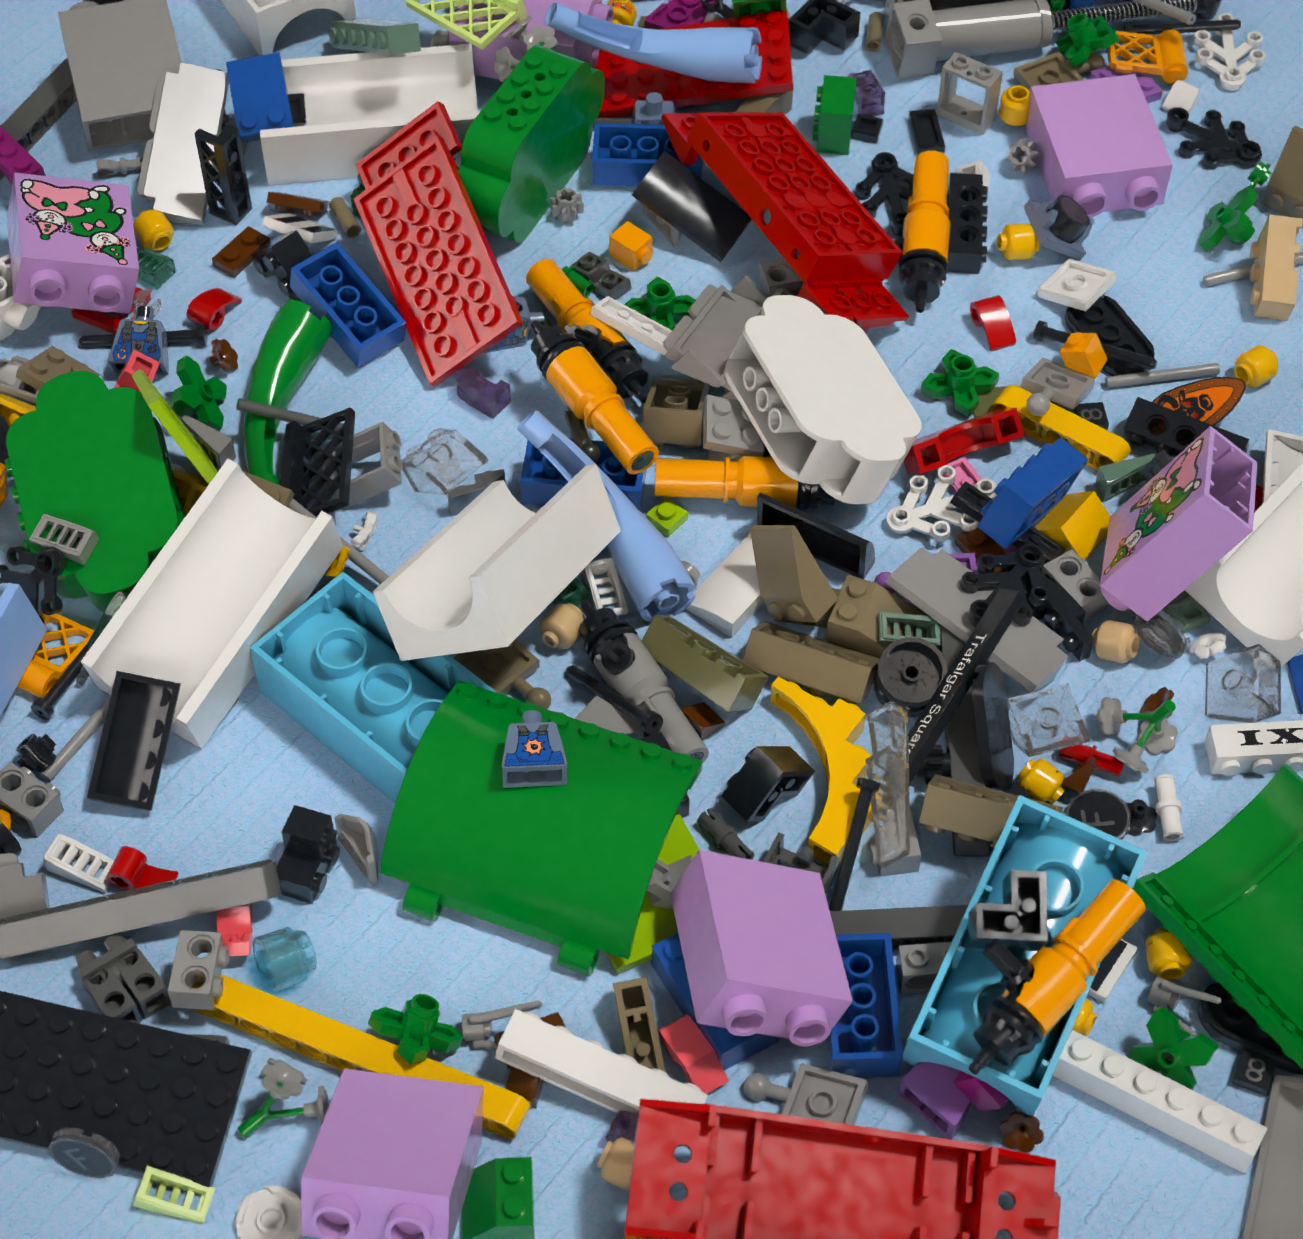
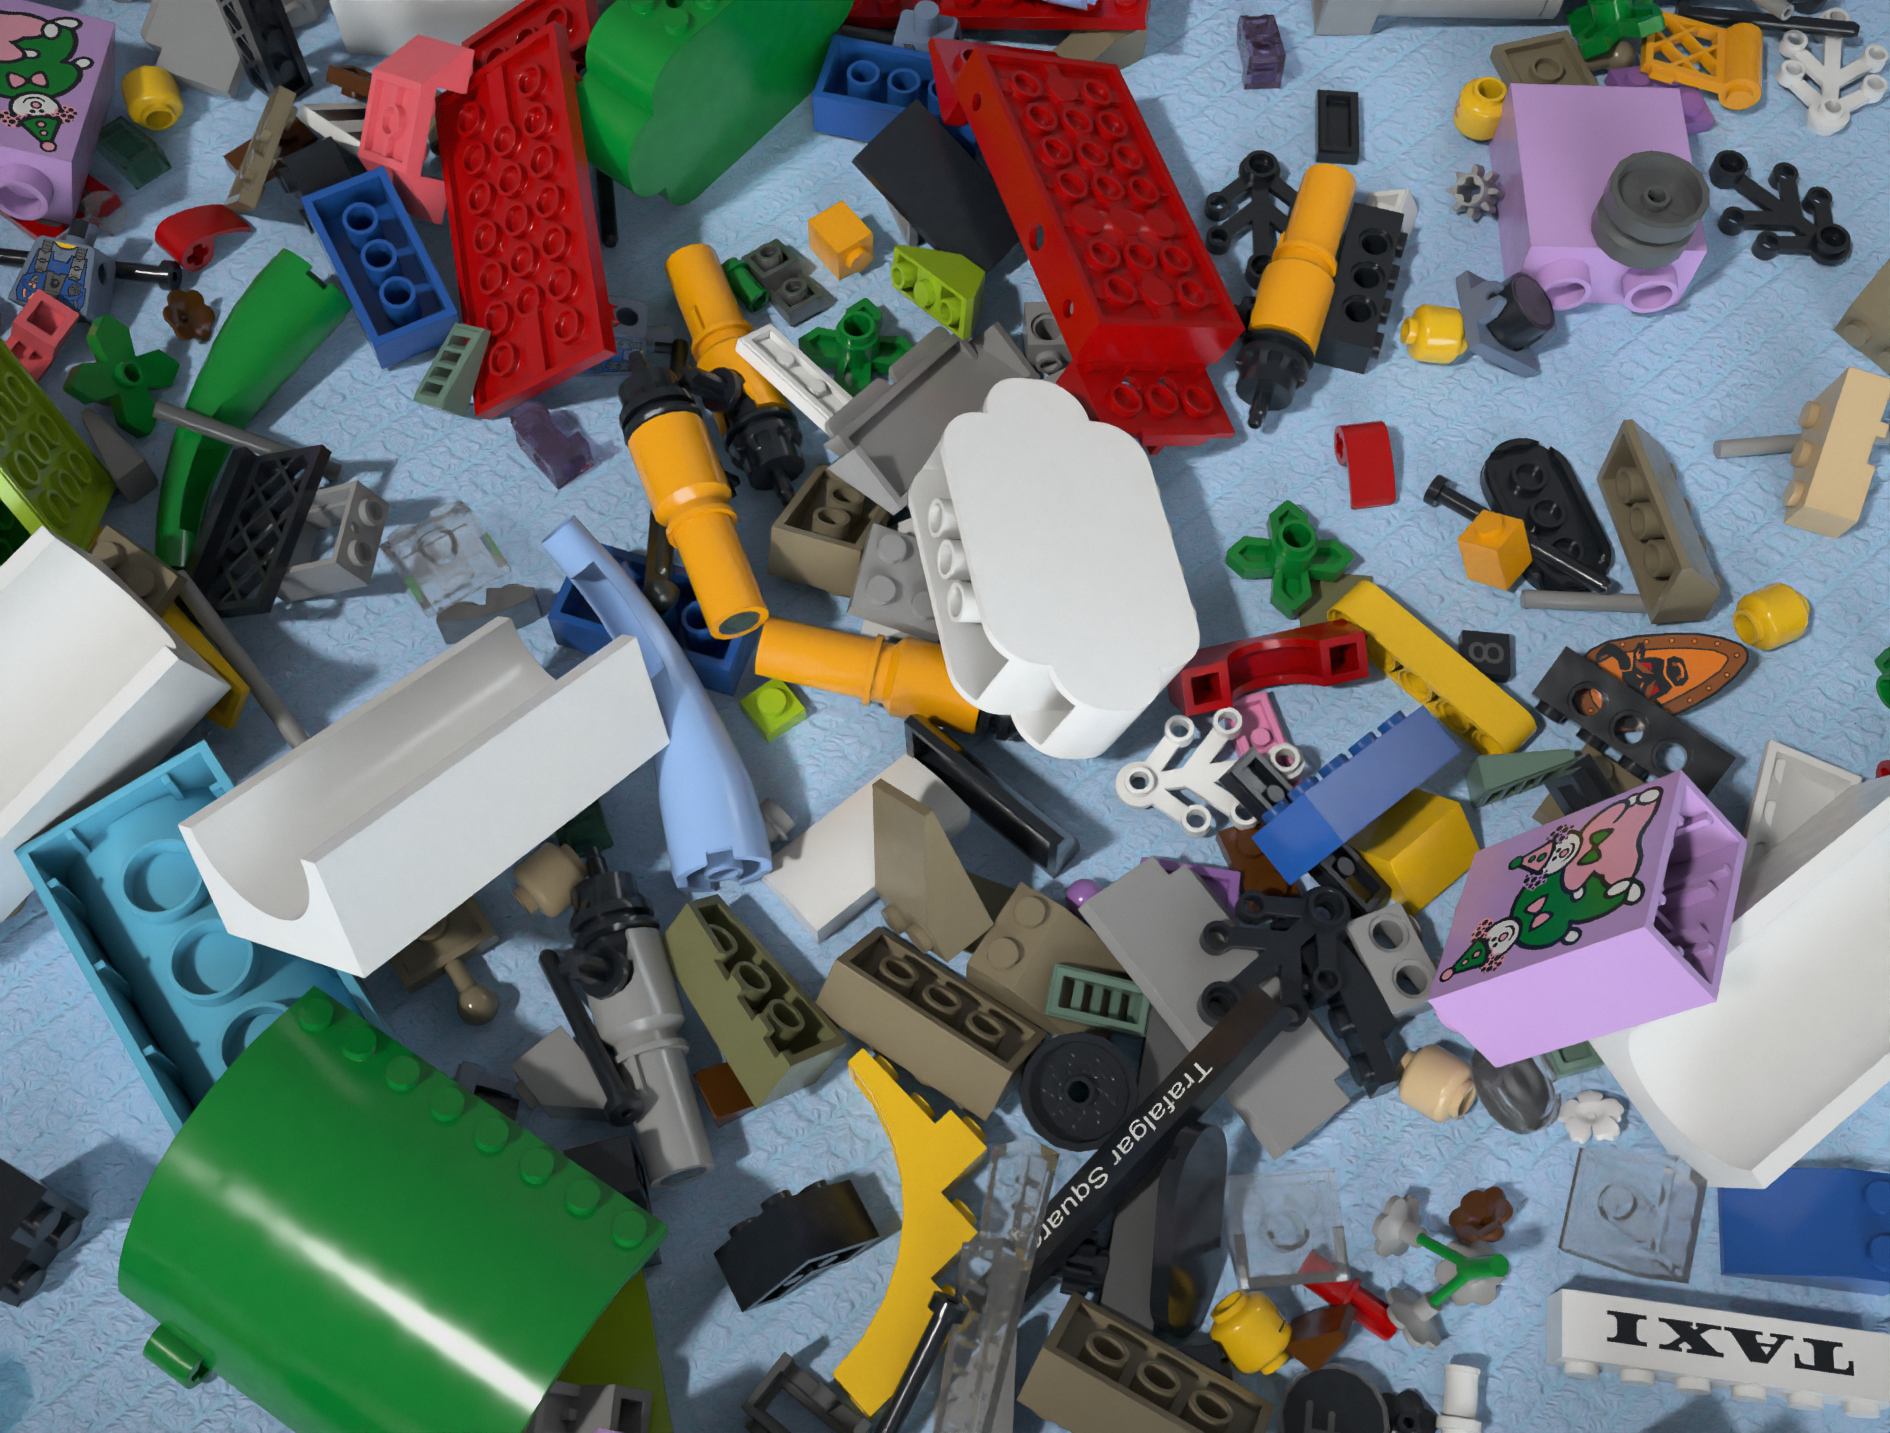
camera: 10 degrees right, 10 degrees up
(243, 257) = (262, 151): none -> dark tan wing
(341, 209) = (400, 118): none -> coral slope
(360, 844) = (107, 1227): light grey slope -> none
(363, 538) = (301, 655): white piece -> none
(416, 368) = (454, 371): none -> sand green slope
(533, 754) = (365, 1178): sand blue torso -> none
(566, 205) = (764, 157): light grey gear -> none
(600, 567) = (633, 783): white slope -> none
(702, 260) = (941, 285): none -> lime slope
(724, 836) = (705, 1327): dark grey pin -> none
(834, 114) = (1200, 78): green brick -> none
(867, 128) = (1248, 107): black tile -> none
(951, 106) = (1386, 90): light grey window -> none
(1054, 383) = (1438, 591): light grey plate -> none
(1076, 285) = (1511, 423): white tile -> none
(1131, 145) = (1649, 209): none -> dark grey wheel
(1177, 327) = (1656, 529): none -> dark tan slope
(1181, 96) = (1742, 133): white slope -> none
(1230, 221) = (1778, 355): green plant -> none
(1259, 174) = (1839, 289): green plate -> none

